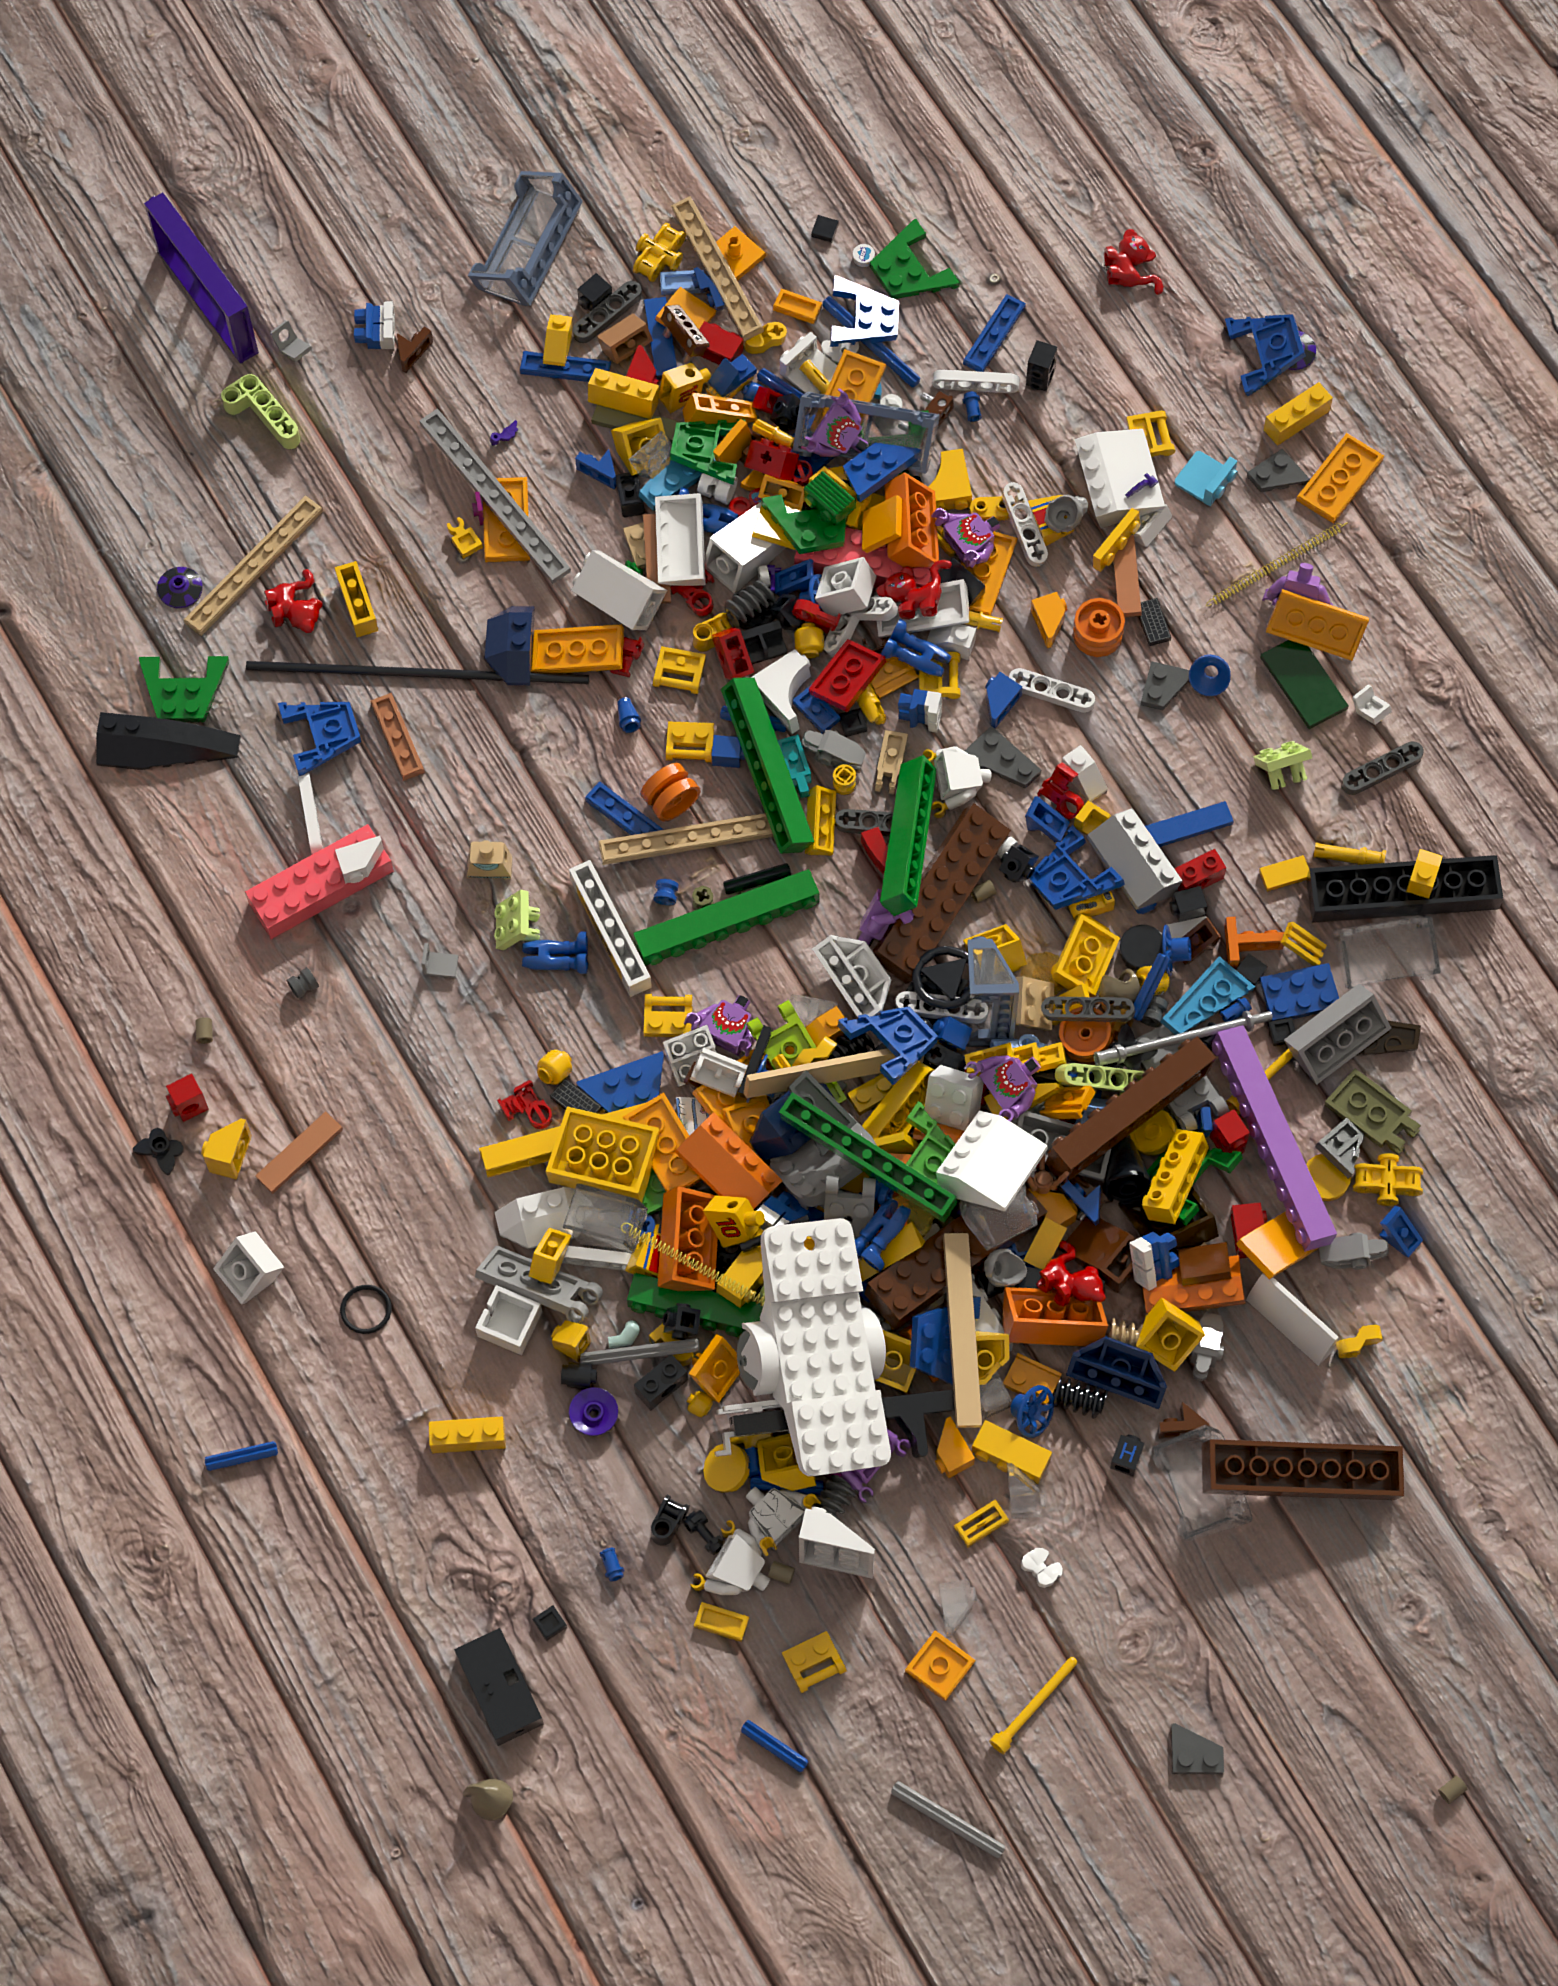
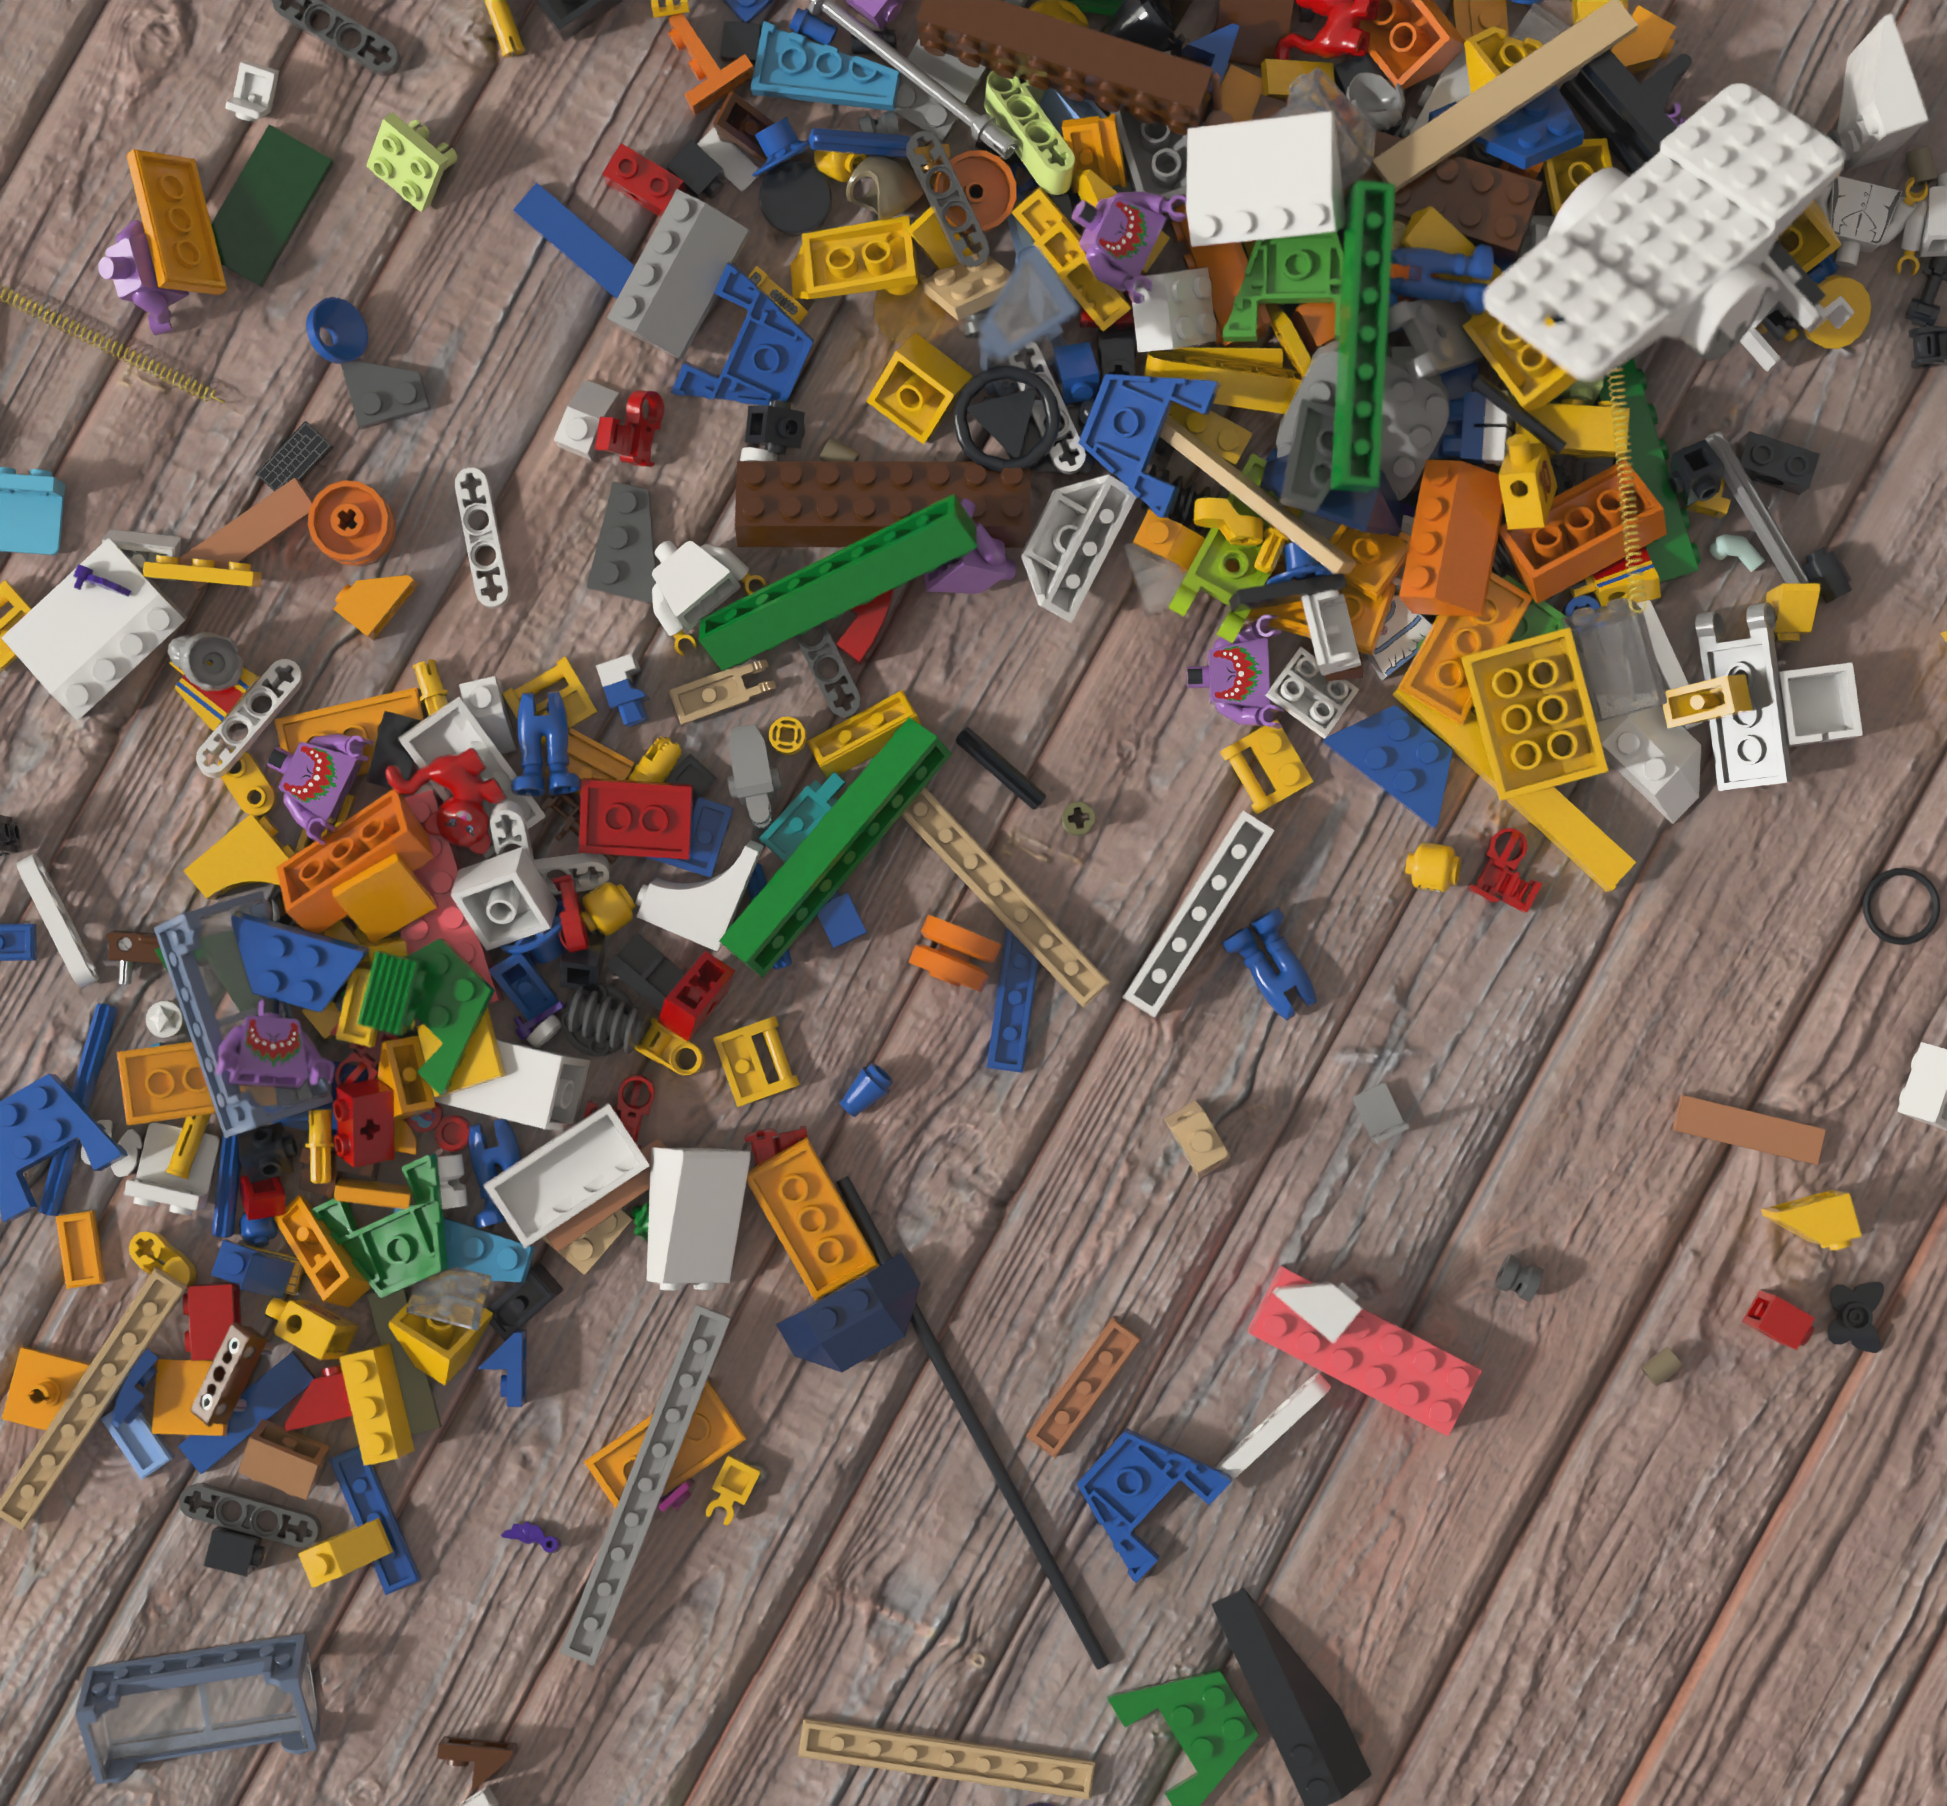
camera: 120 degrees left, 20 degrees up
(301, 613) = (984, 1638): red animal -> none
(356, 599) = (920, 1574): yellow brick -> none
(513, 920) = (1265, 1049): yellowish green plate -> none
(570, 1096) = (1460, 811): black tile -> none
(593, 1400) = (1878, 515): dark purple dish -> none
(659, 252) = (110, 1500): yellow axle -> none
(666, 892) = (1096, 875): blue wheel -> none
(689, 735) = (843, 988): yellow plate -> none
(699, 1403) = (1763, 404): yellow piece -> none
(715, 1368) = (1718, 401): light orange tile -> none
(727, 918) = (1084, 770): green brick -> none
(971, 401) = (100, 903): blue pin -> none
(1001, 696) = (538, 597): blue slope -> none
(1046, 819) = (688, 426): blue slope -> none
(1090, 818) = (649, 370): yellow panel -> none
(1126, 1038) = (955, 132): black animal -> none
(1284, 873) = (571, 74): yellow tile -> none

